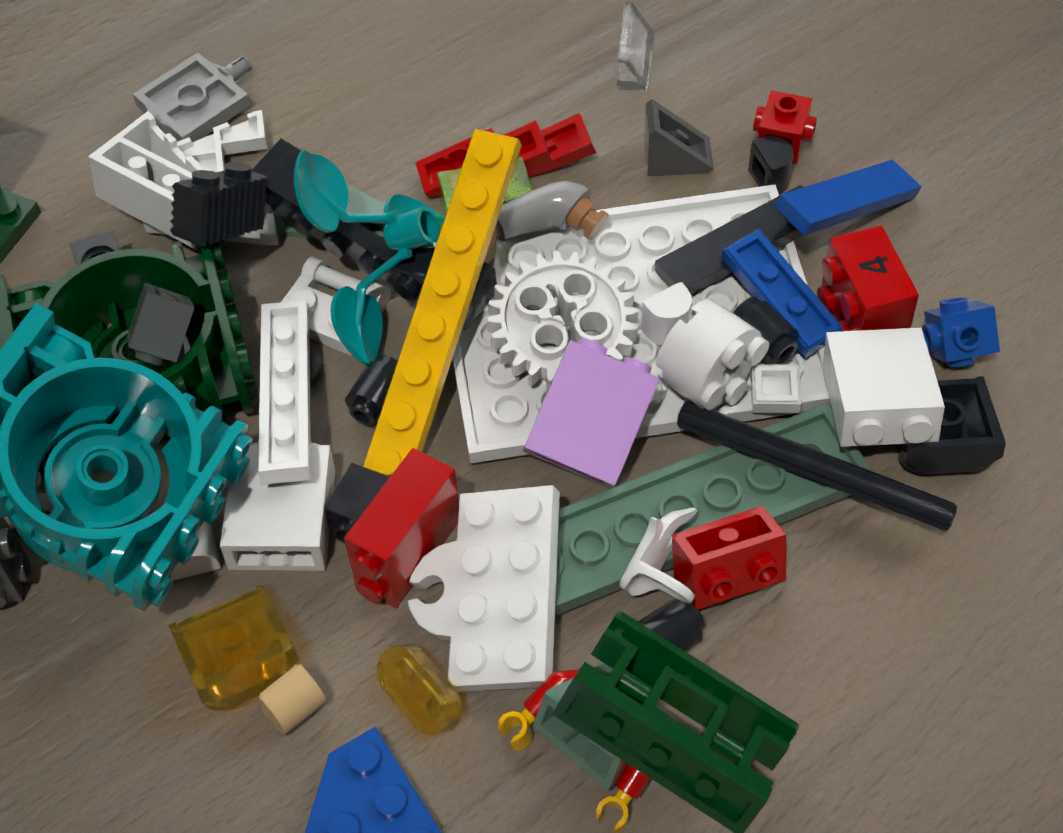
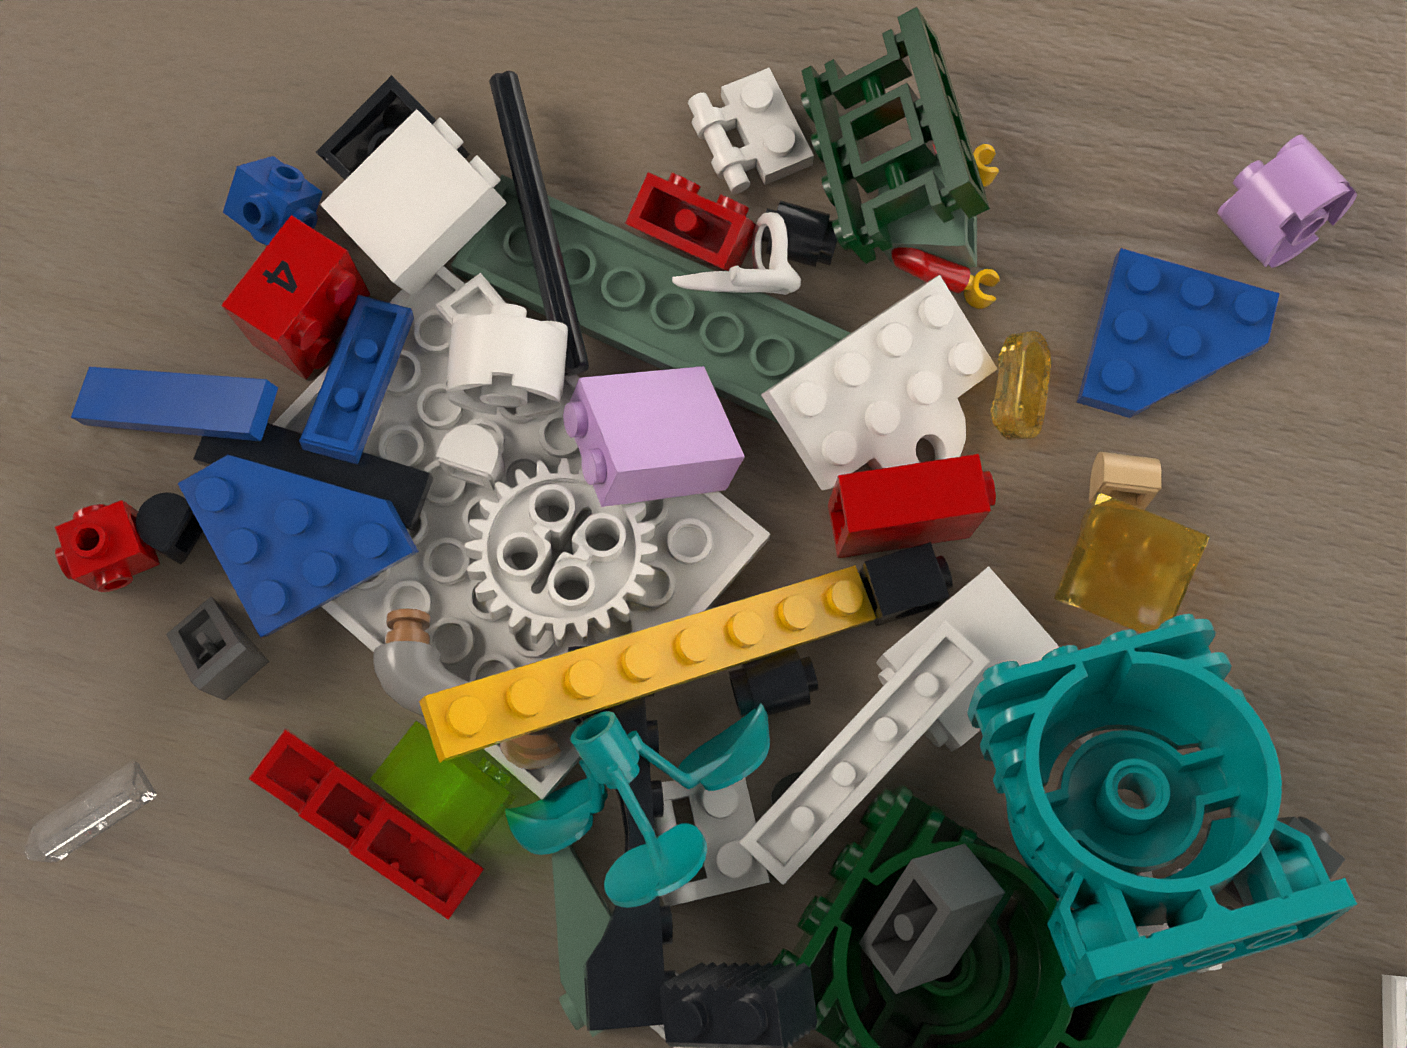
camera: 135 degrees left, 20 degrees up
(702, 200) = (292, 537): none -> blue plate
(773, 328) = (421, 356): black brick -> none
(791, 689) = (764, 124): none -> white plate

